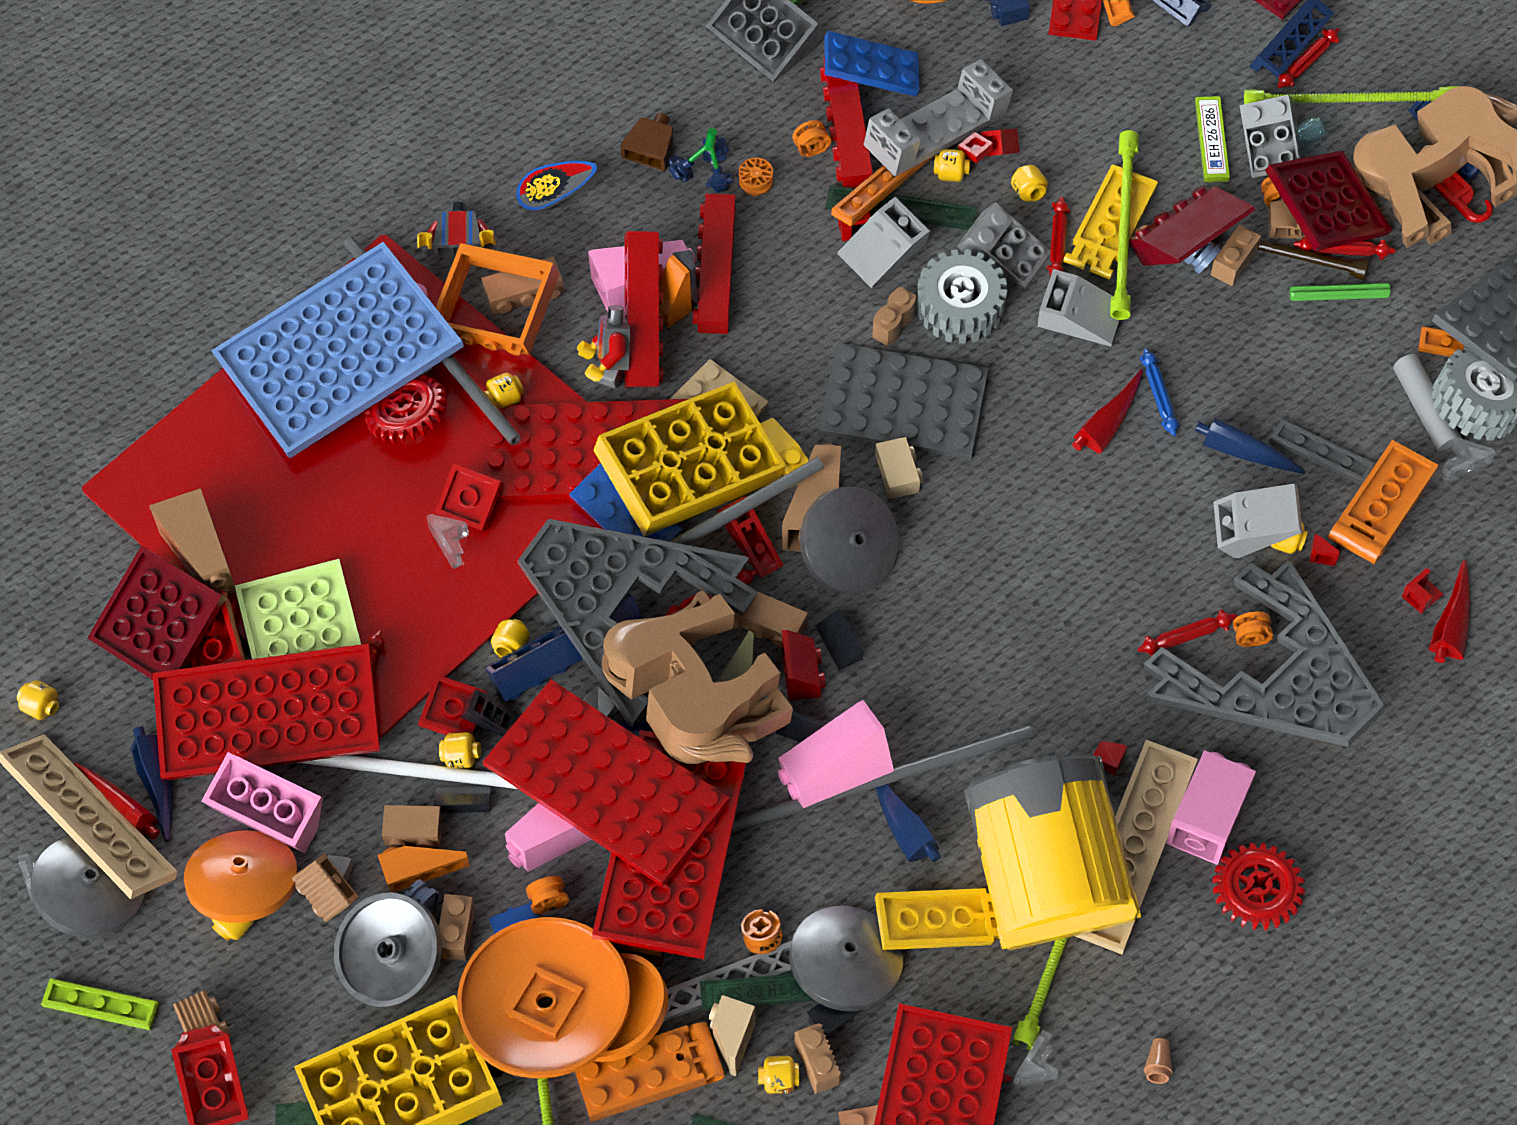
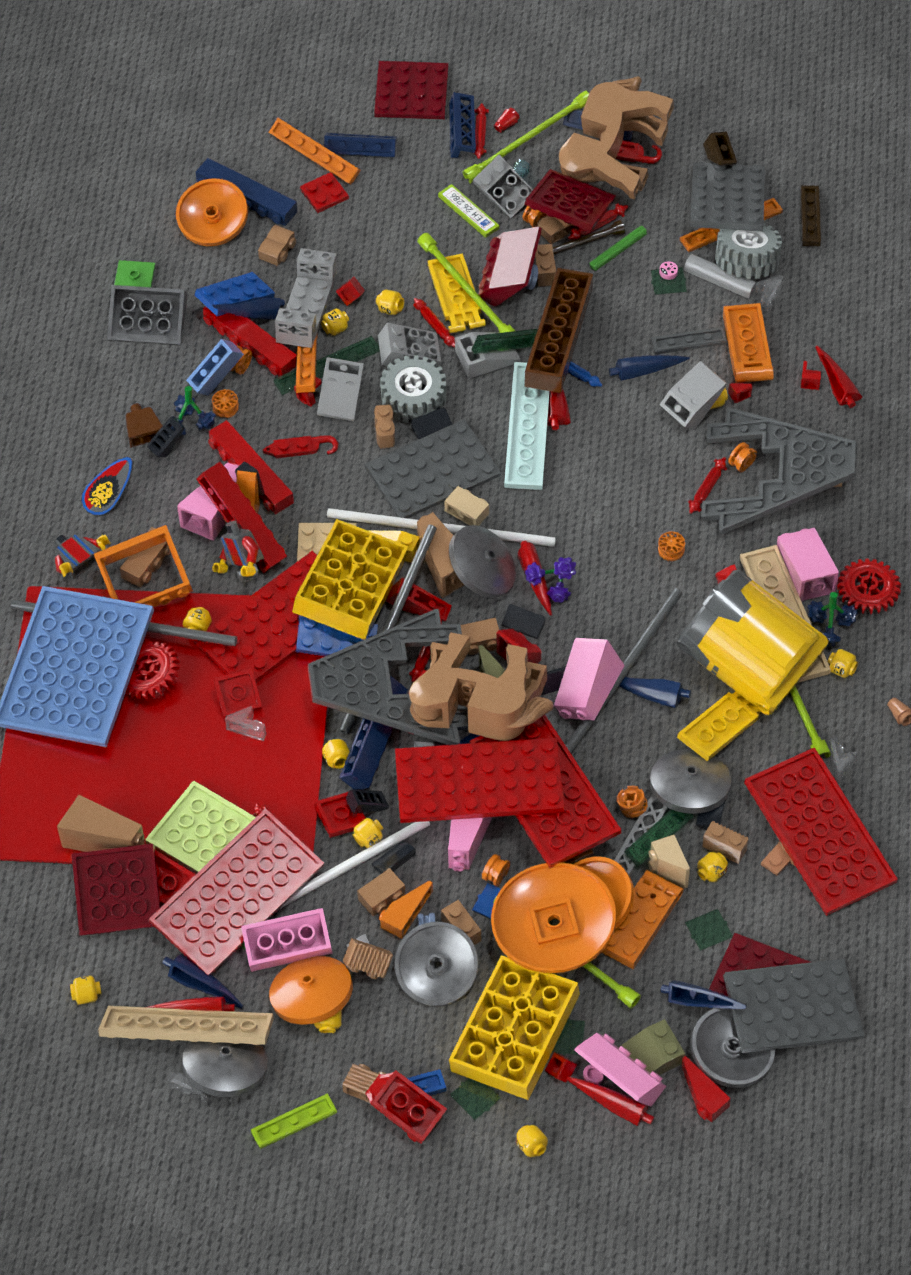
camera: 40 degrees left, 5 degrees down
(259, 1072) = (430, 1082): none -> blue plate
(656, 172) = (162, 448): none -> black slope
(772, 128) = (215, 367): none -> medium blue brick
(790, 276) = (299, 446): none -> red plate
(855, 473) = (412, 524): none -> white piece
(873, 91) = (255, 308): none -> dark blue piece
(903, 595) = (527, 555): none -> red piece
(922, 613) = (563, 567): none -> dark purple plant
(949, 347) = (430, 423): none -> black slope
(969, 40) = (276, 245): none -> medium nougat brick
(976, 147) = (342, 301): plate -> none
(1049, 424) = (526, 434): none -> light aqua plate
(1079, 675) = (671, 547): none -> orange wheel
(1106, 311) = (504, 341): none -> clear green tile
(1144, 953) = (842, 663): none -> yellow head
(1176, 339) = (558, 330): none -> reddish brown brick
(1177, 873) = (845, 616): none -> dark blue plant
(1347, 64) = (506, 120): none -> red cone
(1363, 368) = (664, 286): none -> clear green piece
(1372, 355) = (668, 270): none -> bright pink tile

